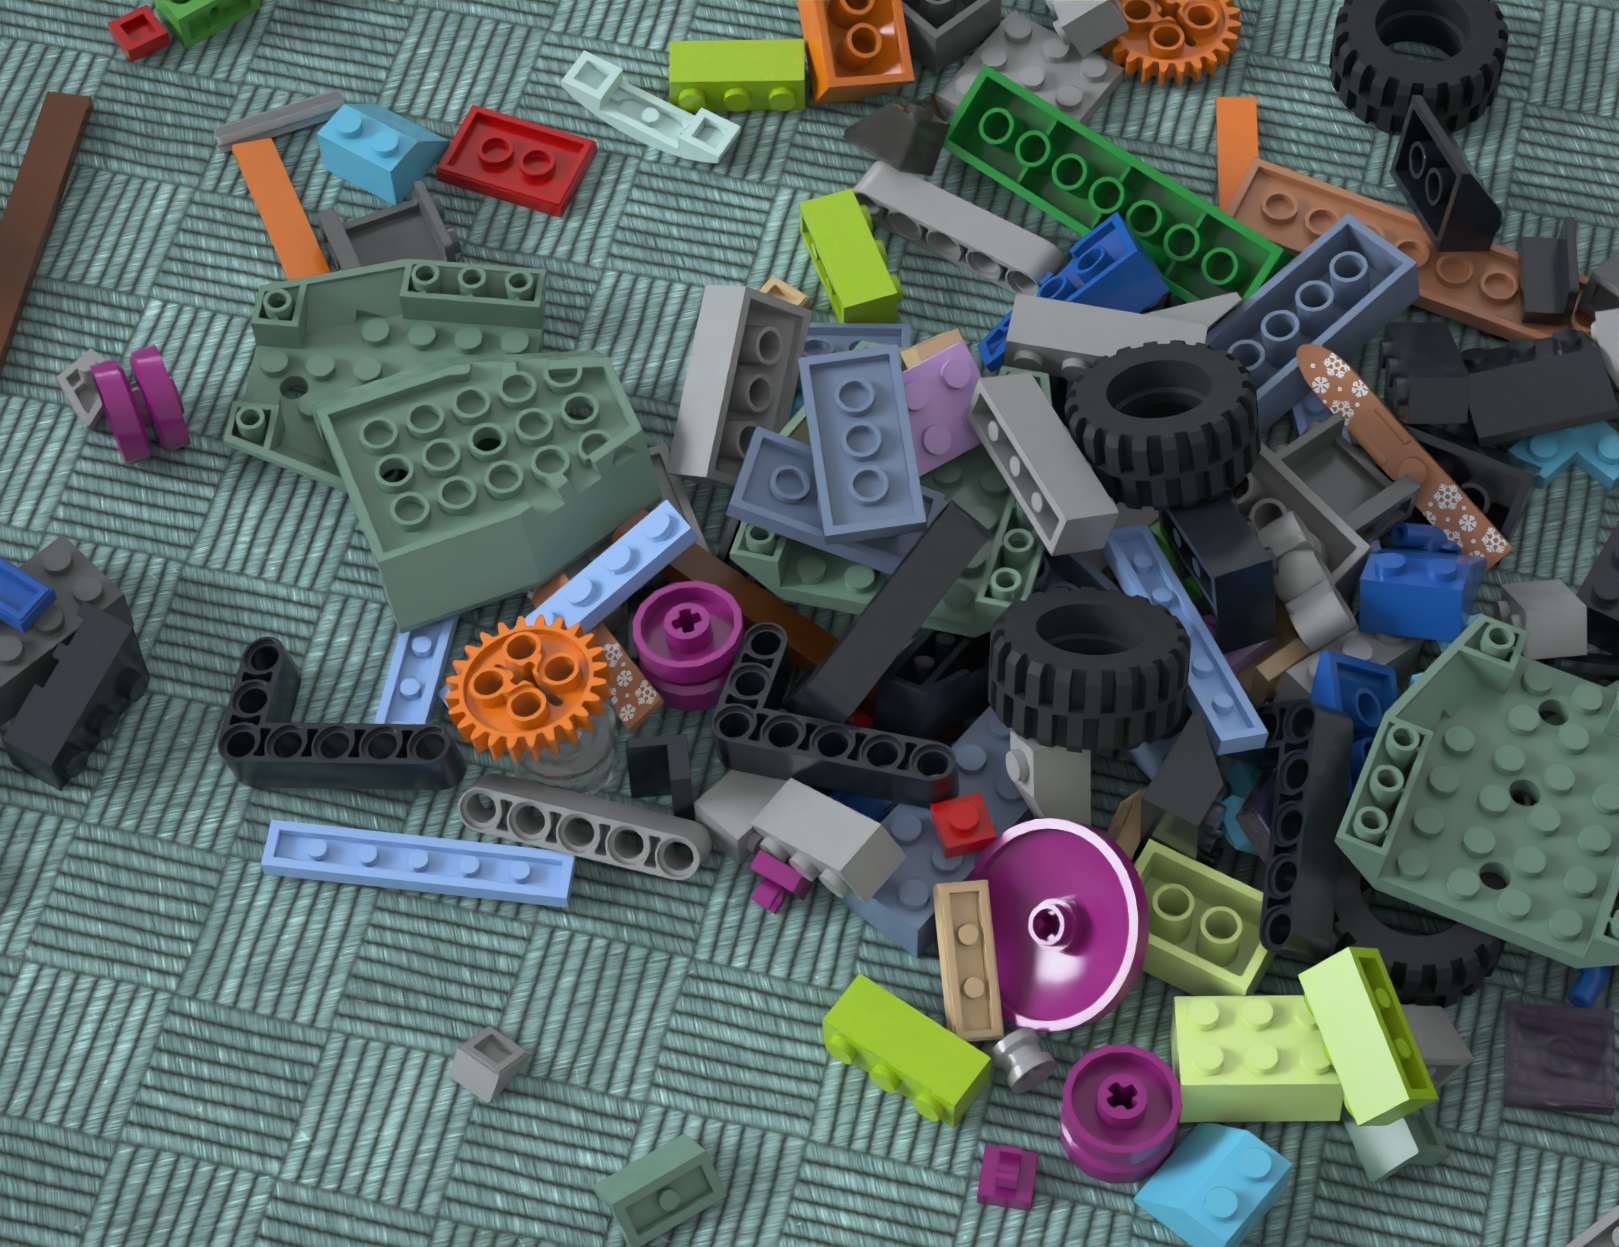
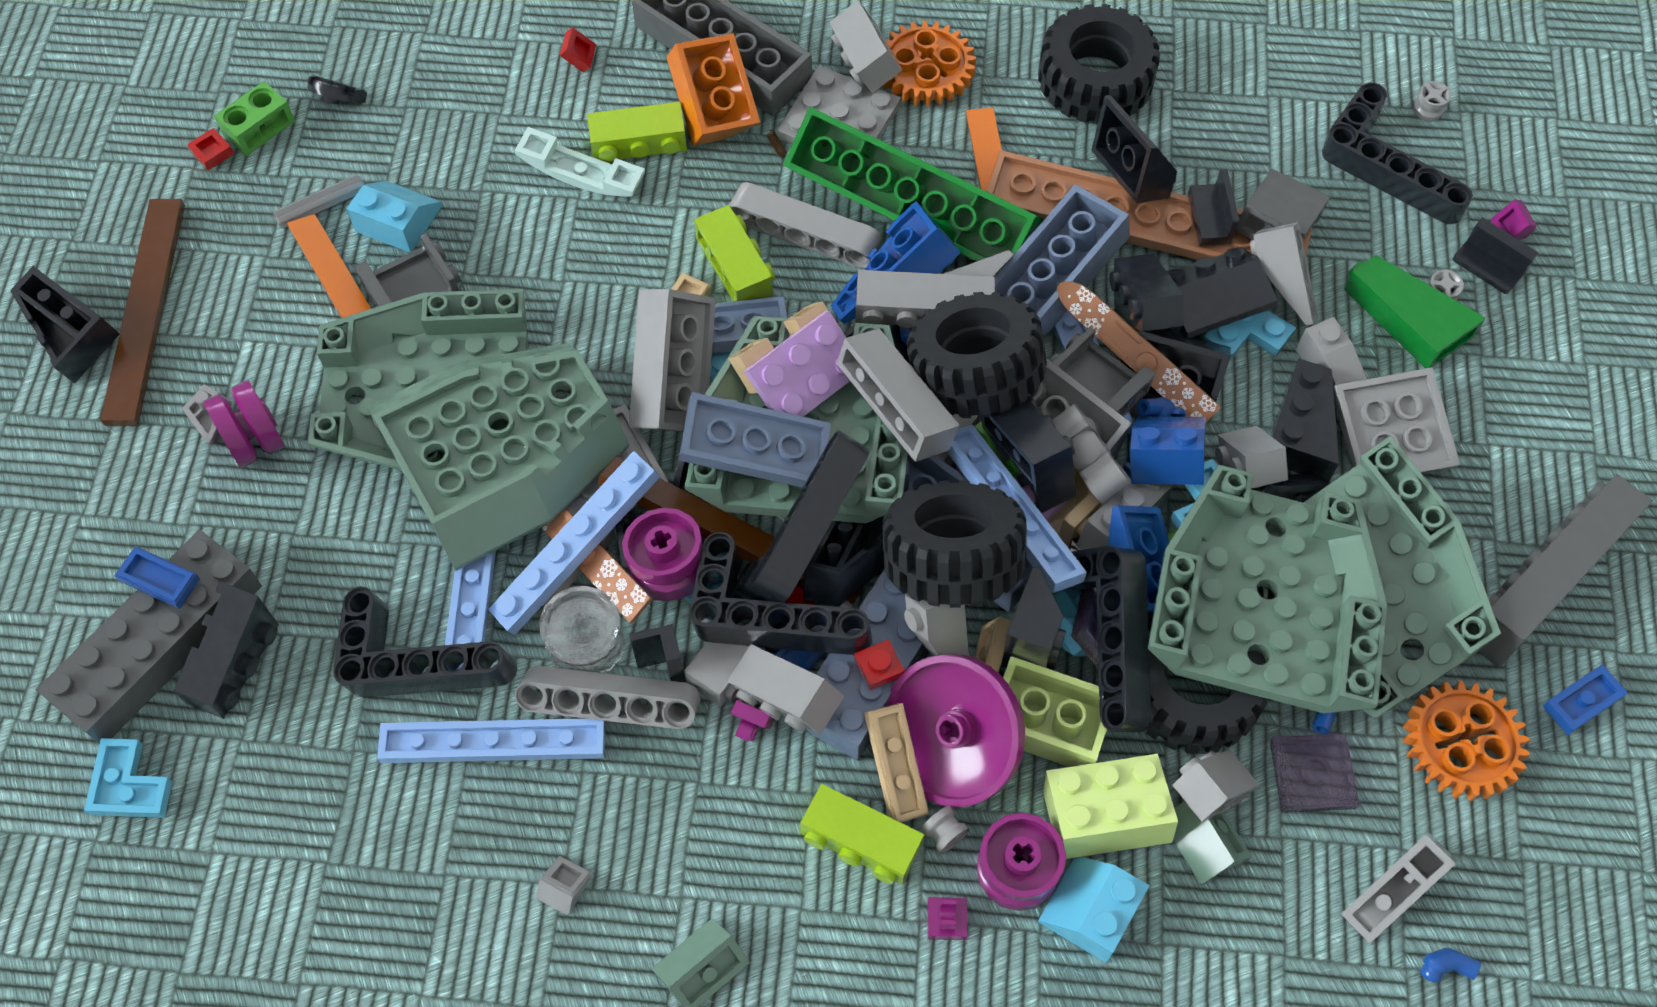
camera: 10 degrees left, 5 degrees up
(516, 161) = (491, 210): red tile -> none
(528, 688) = (570, 577): orange gear -> none
(862, 444) = (769, 397): sand blue plate -> none
(902, 136) = (758, 163): clear smoke slope -> none
(1367, 1037) = (1190, 788): brick -> none

